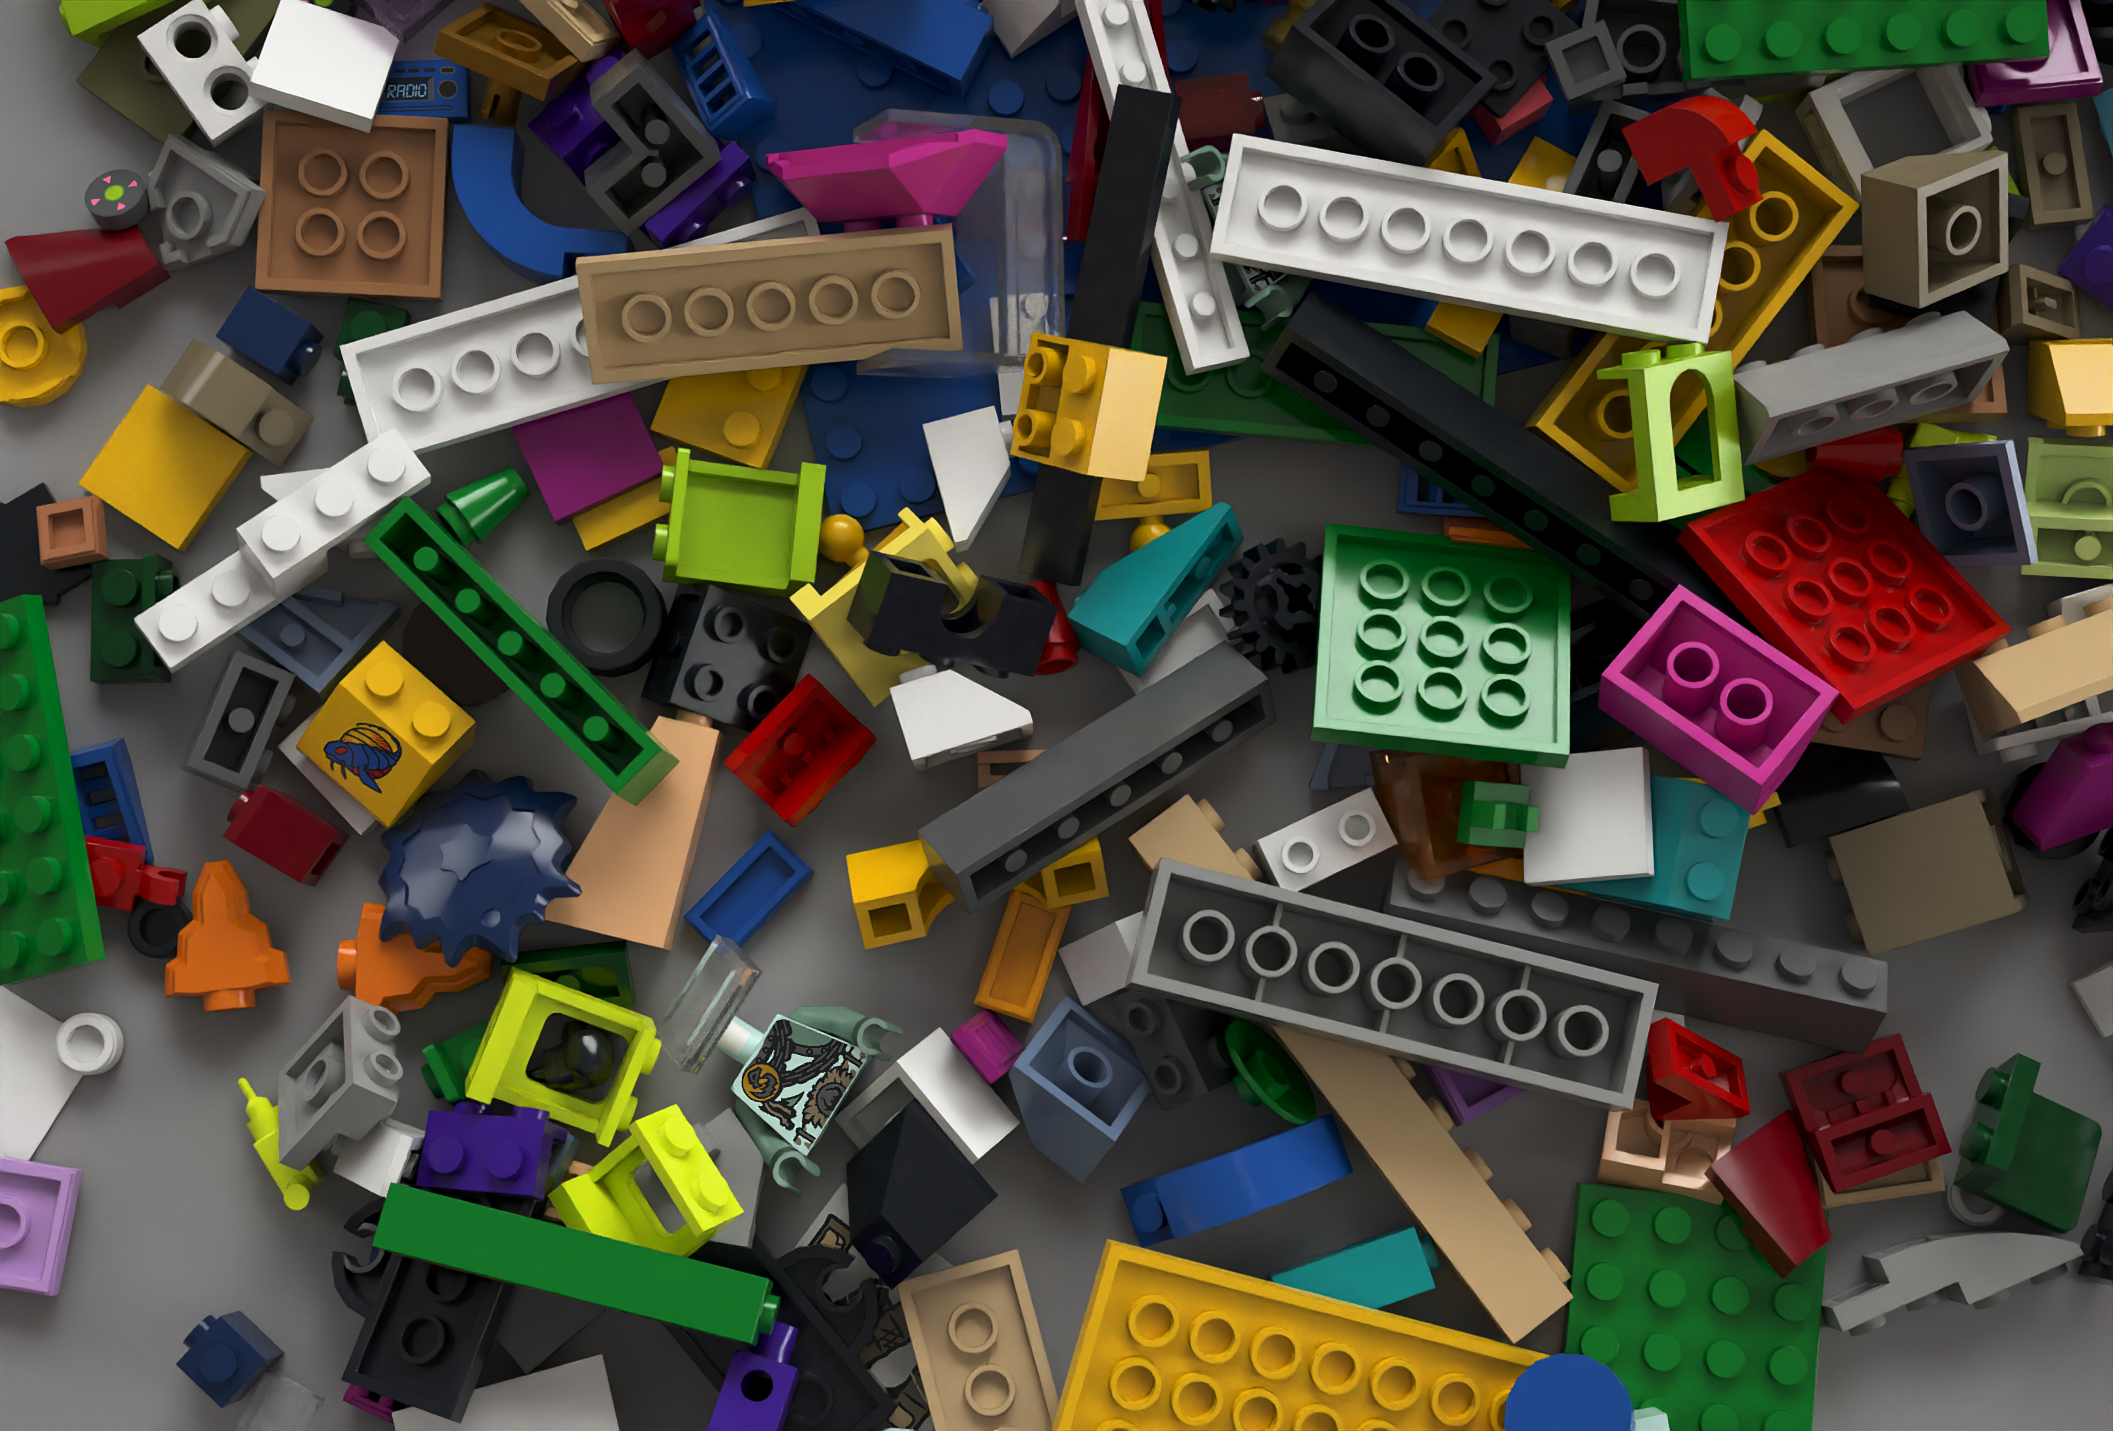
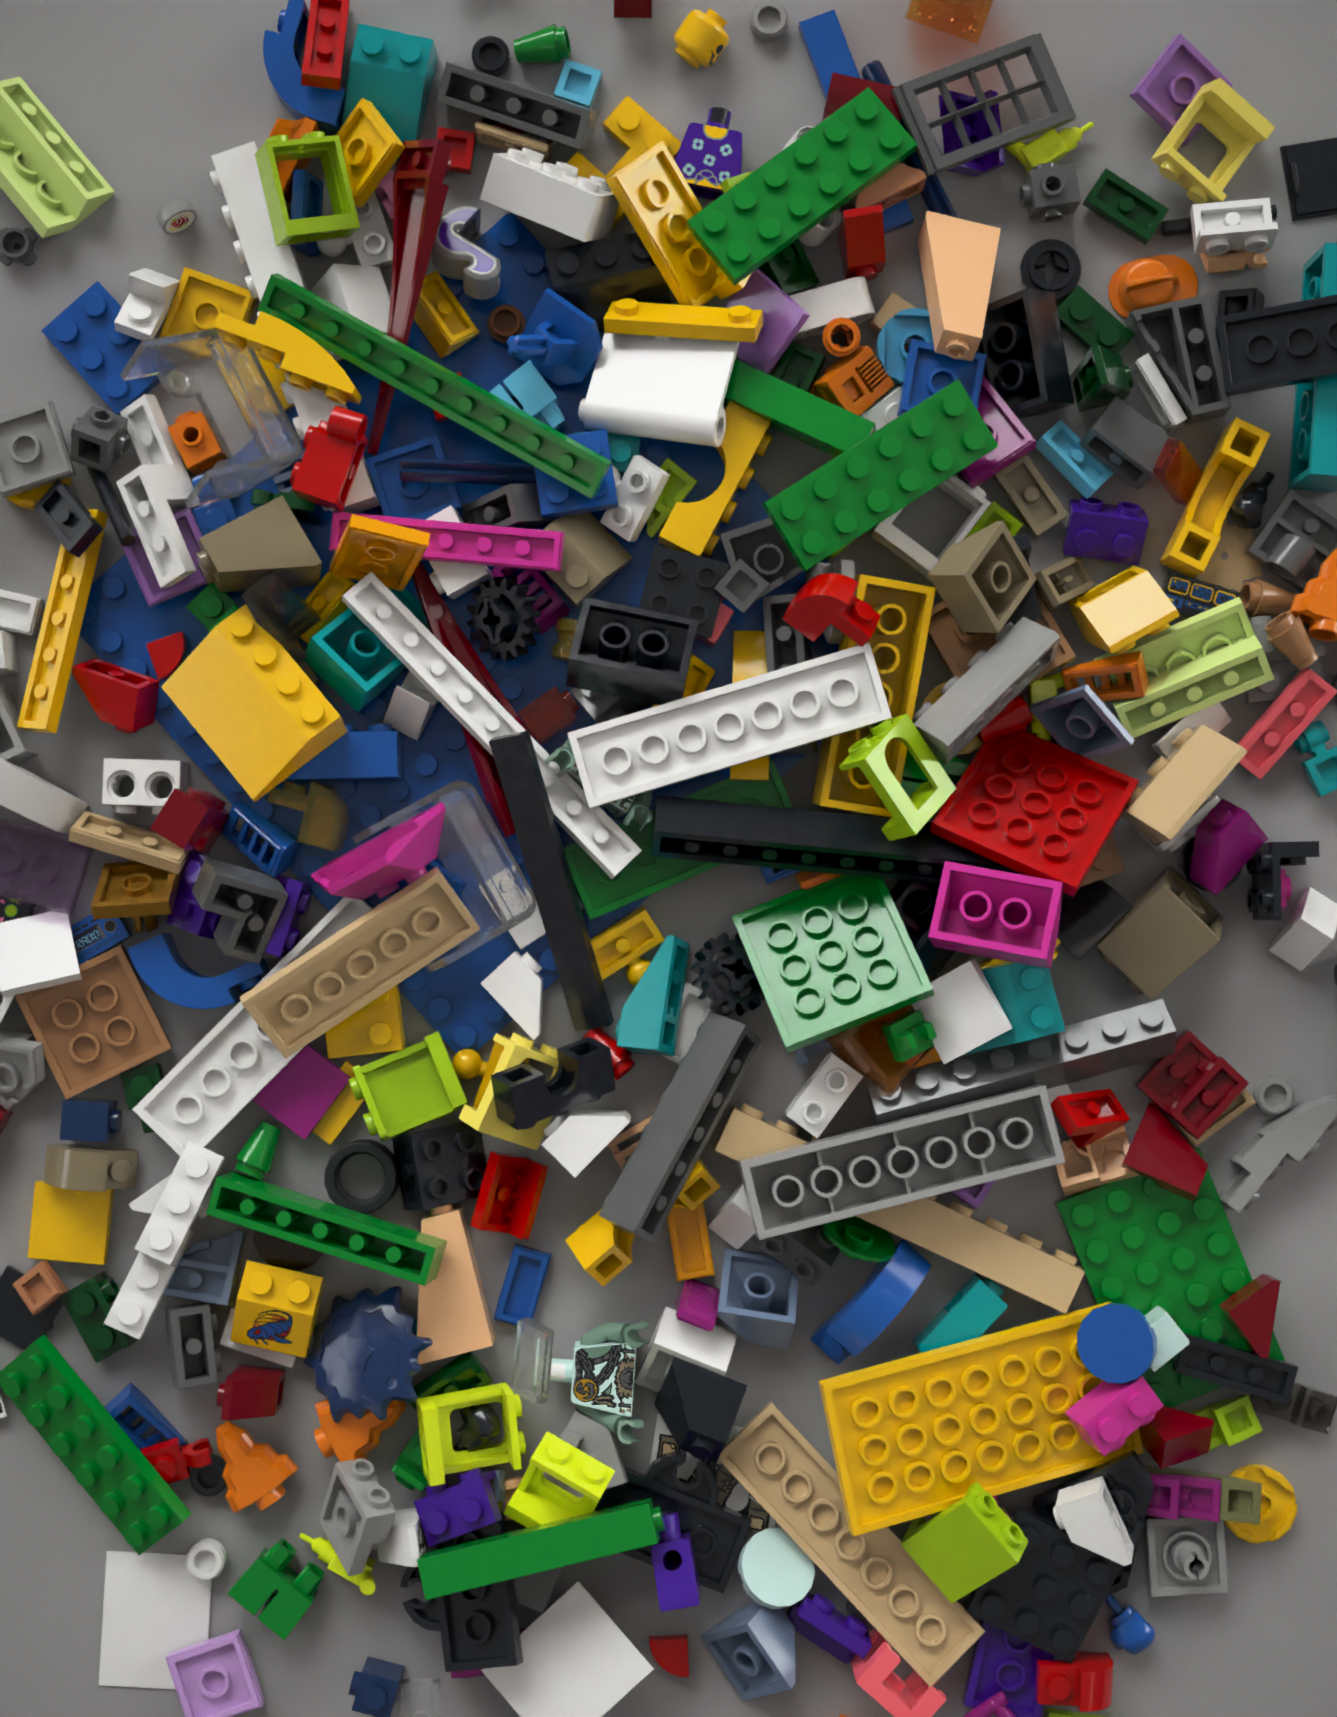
camera: 25 degrees left, 5 degrees up
(186, 1155) = (271, 1573): none -> green hips
(827, 86) = (324, 815): none -> clear yellow brick
(1088, 407) = (568, 930): yellow slope -> none
(2027, 1148) = (1289, 1058): dark green bracket -> none
(2063, 455) = (1118, 665): none -> orange slope

